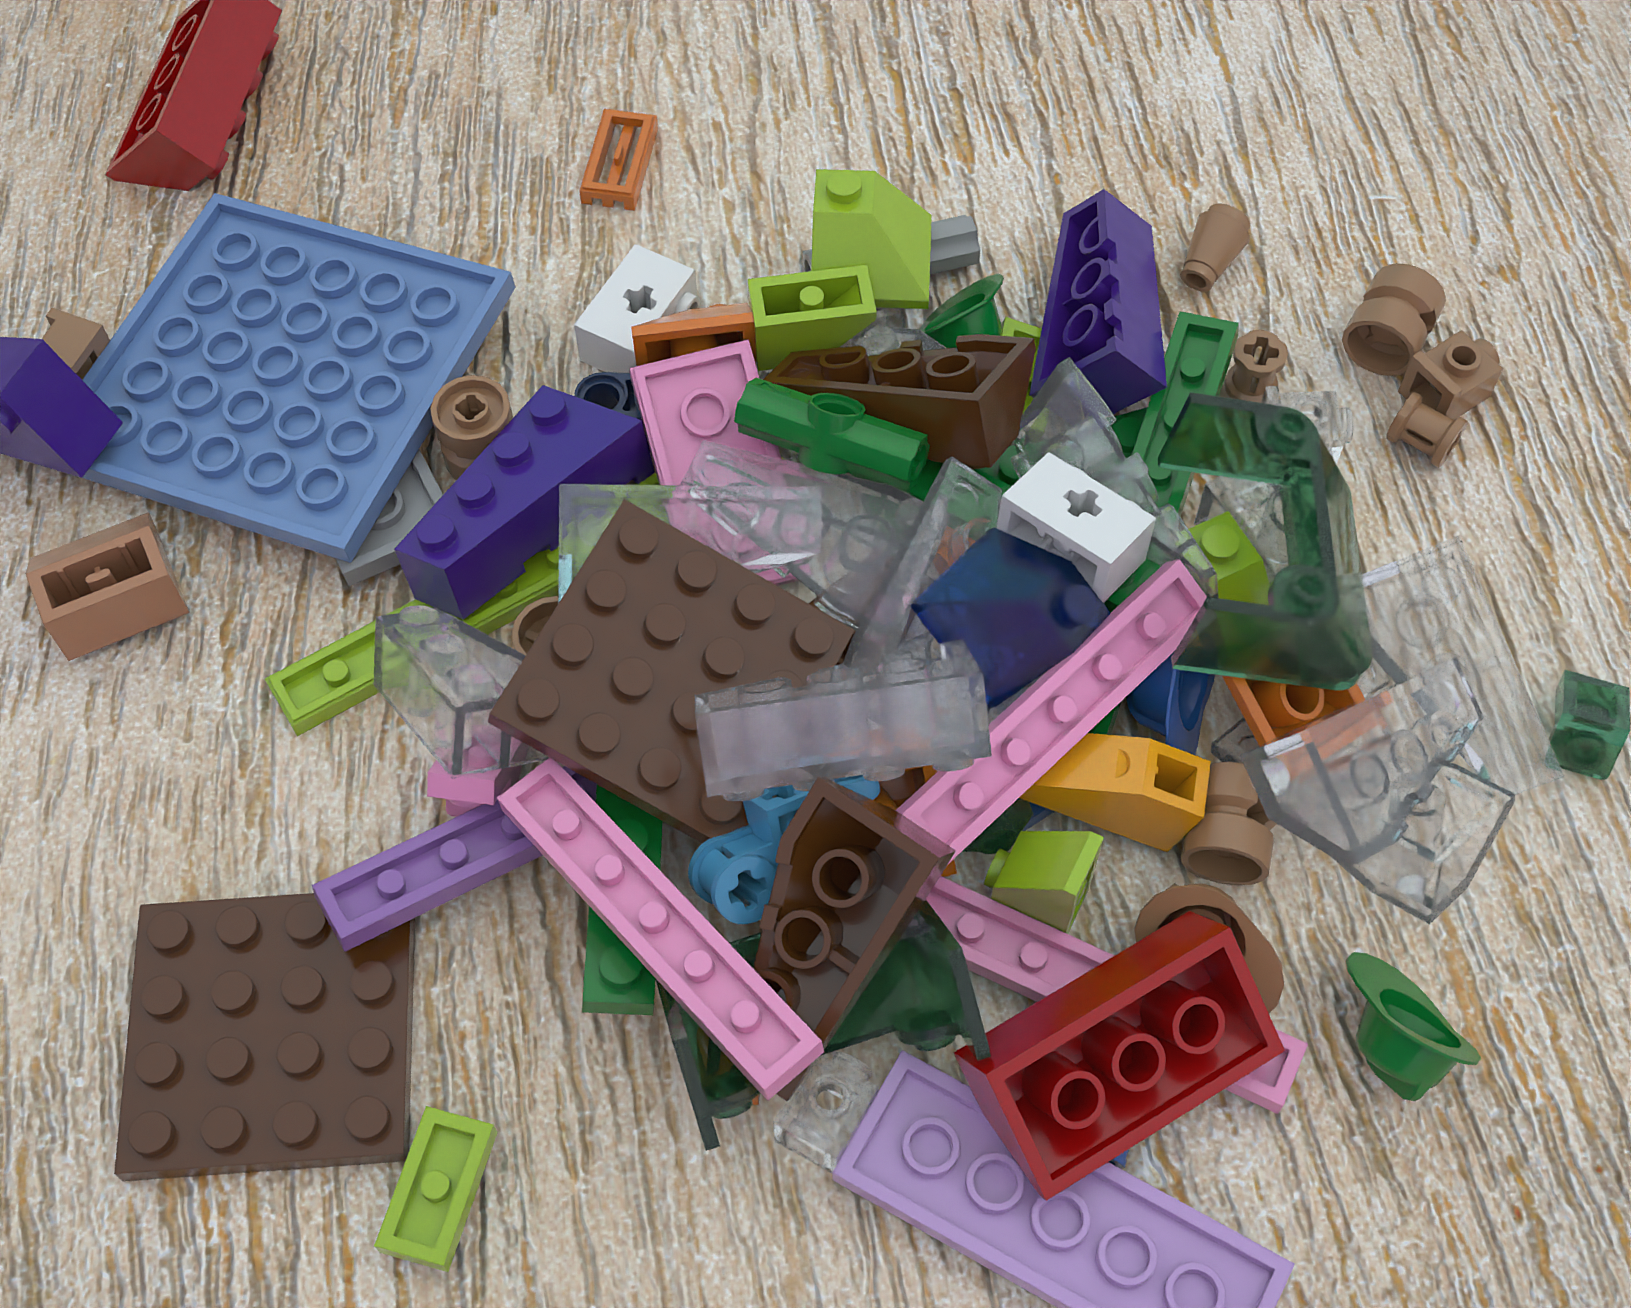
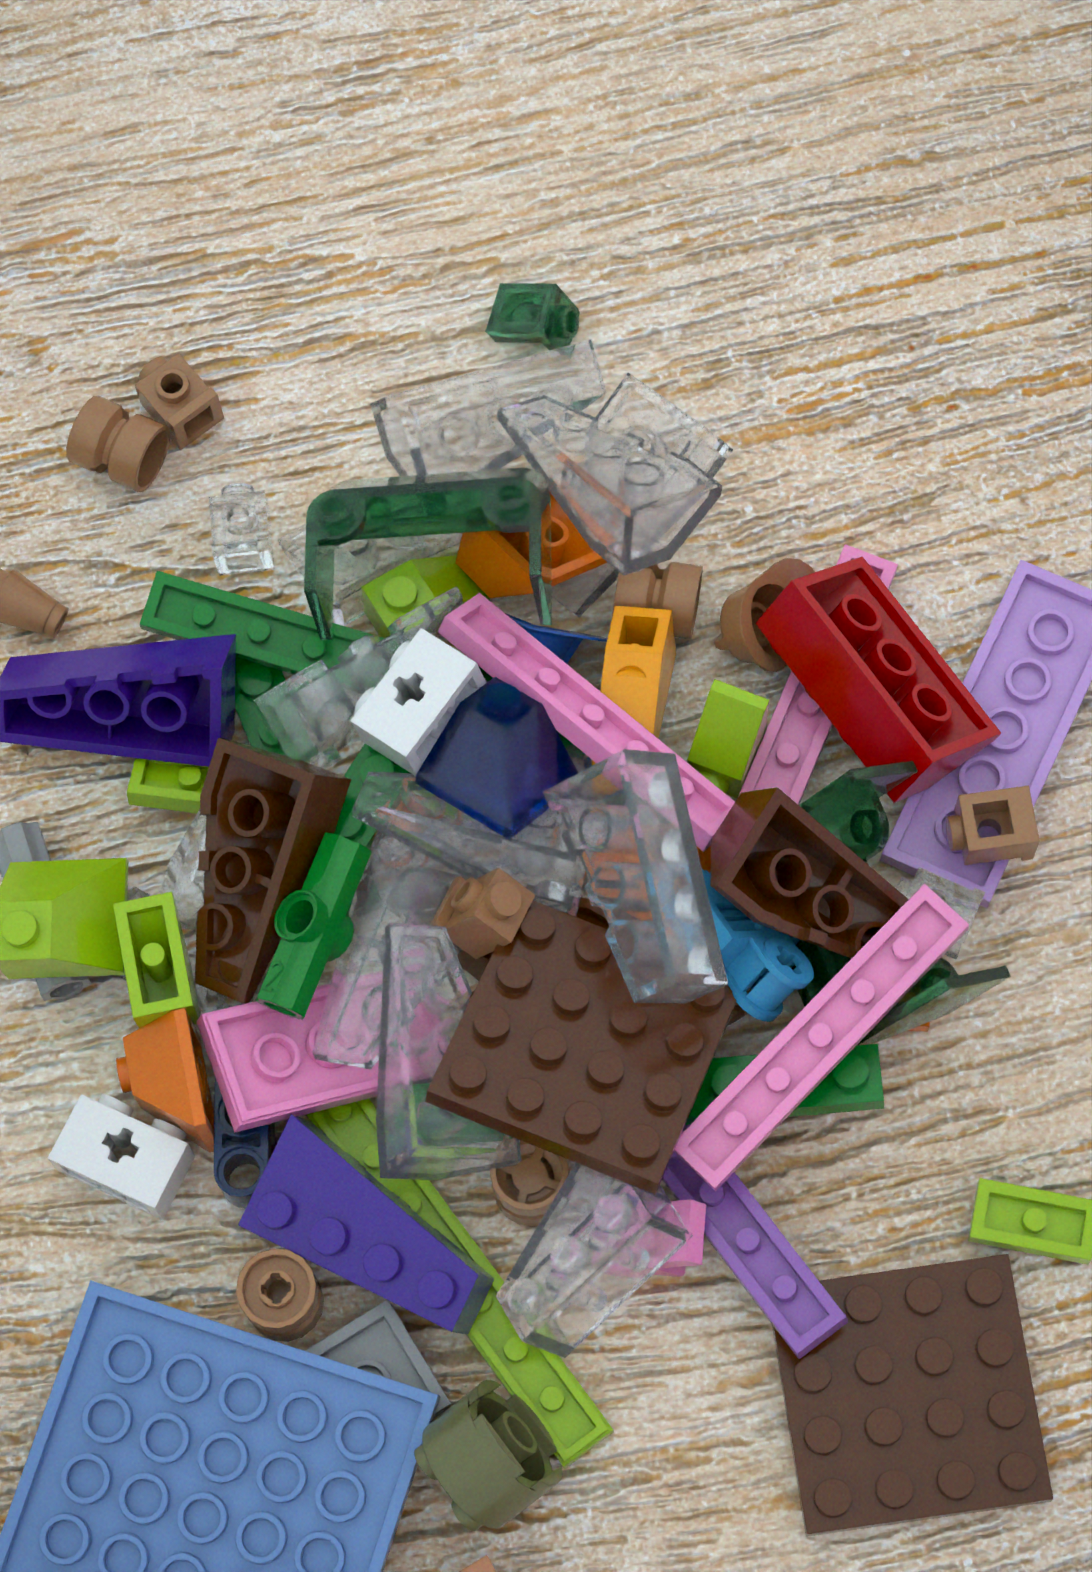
camera: 90 degrees left, 10 degrees up
(272, 592) = (489, 1457): none -> olive brick
(837, 590) = (483, 911): none -> medium nougat brick
(927, 1142) = (1005, 810): none -> medium nougat brick
(966, 313) = (128, 827): green piece -> none
(1271, 360) = (174, 550): medium nougat bush -> none
(1403, 1030) = (824, 472): green piece -> none
(1426, 429) = (239, 424): medium nougat bush -> none

